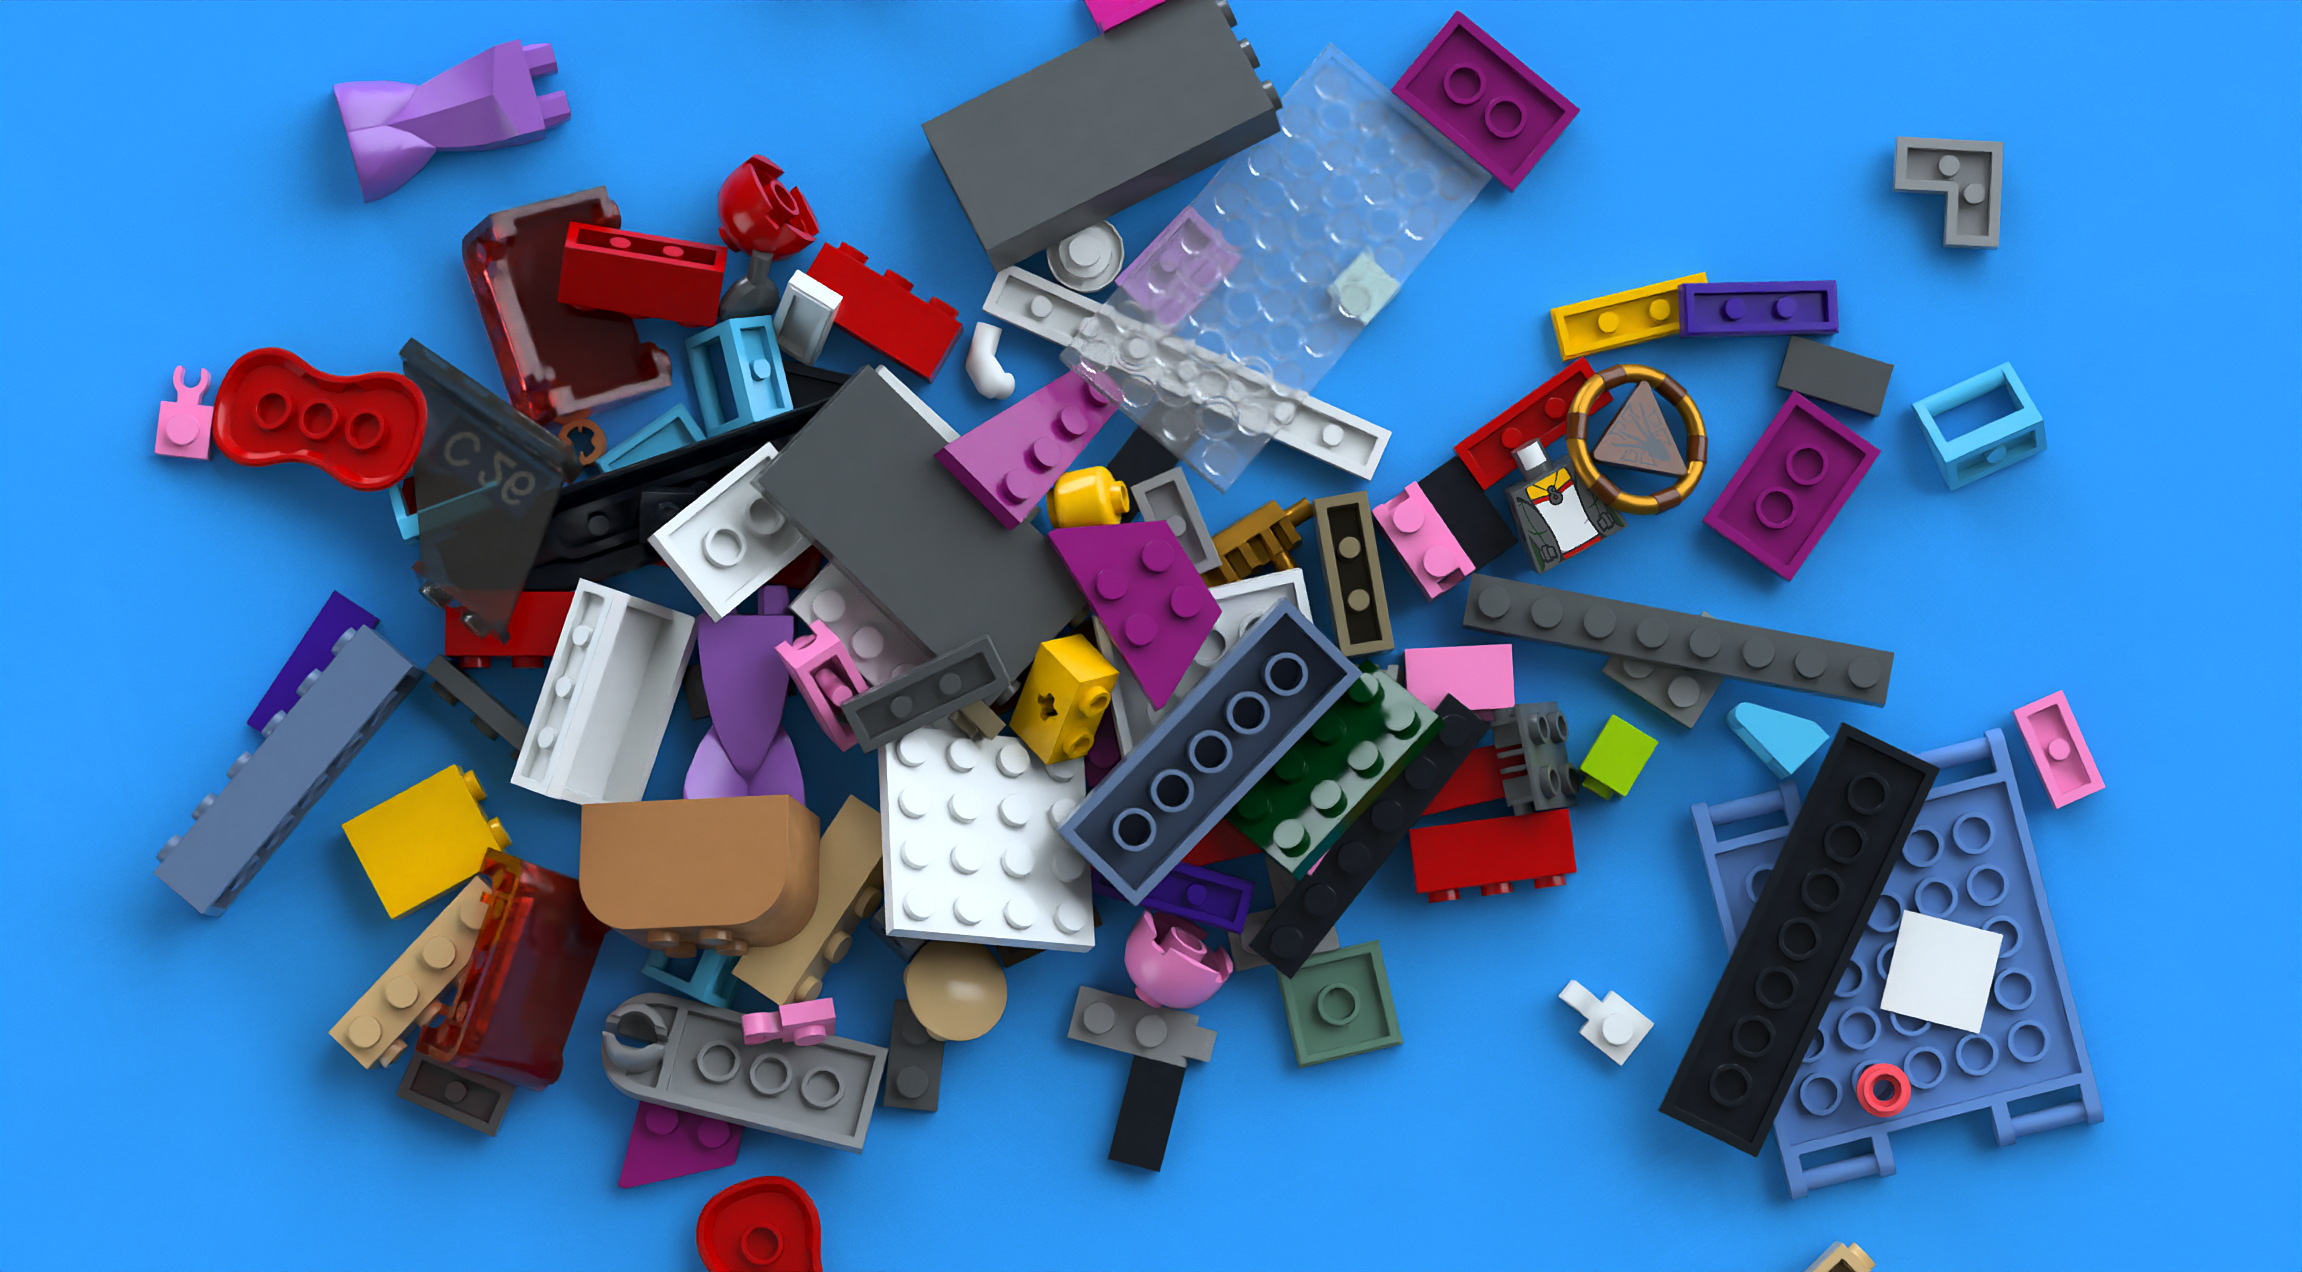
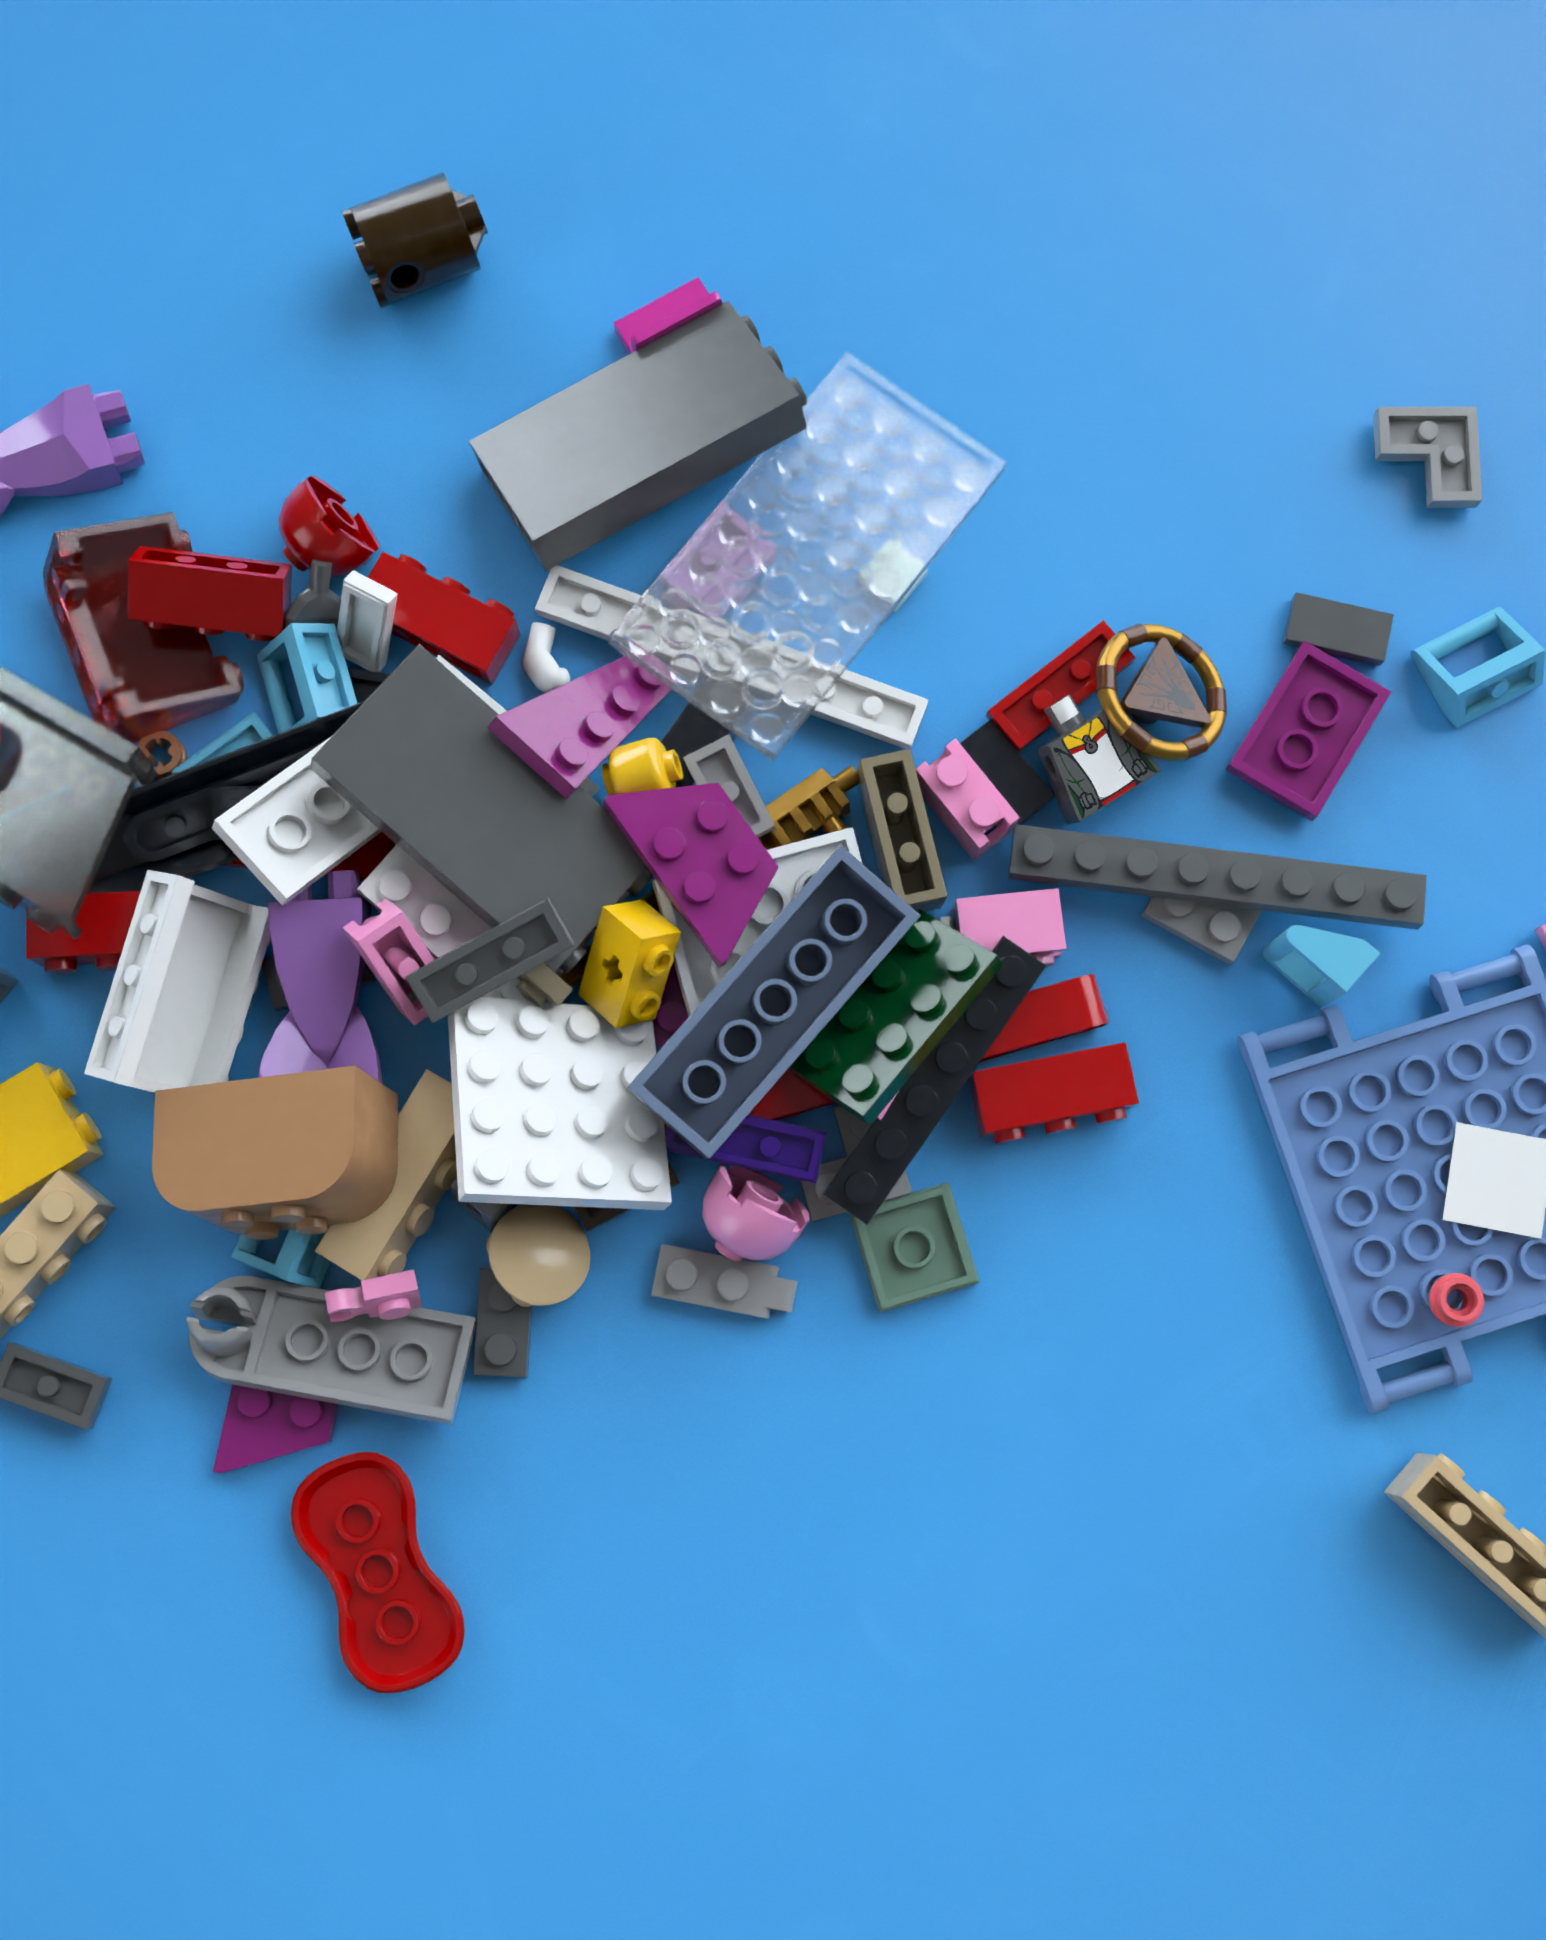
camera: 10 degrees left, 5 degrees down
(490, 714) = (43, 988): dark grey plate -> none
(520, 977) = (101, 1270): clear red windscreen -> none
(1088, 258) = (631, 557): white plate -> none
(1147, 1113) = (733, 1366): black tile -> none
(1485, 100) = (995, 397): magenta plate -> none
(1543, 734) = (1096, 970): dark grey hinge -> none
(1610, 1023) = (1179, 1251): white plate -> none
(1615, 759) = (1165, 993): lime brick -> none
(1619, 319) = (1146, 586): yellow tile -> none
(1758, 309) = (1262, 570): dark purple tile -> none
(1798, 939) = (1359, 1159): black plate -> none

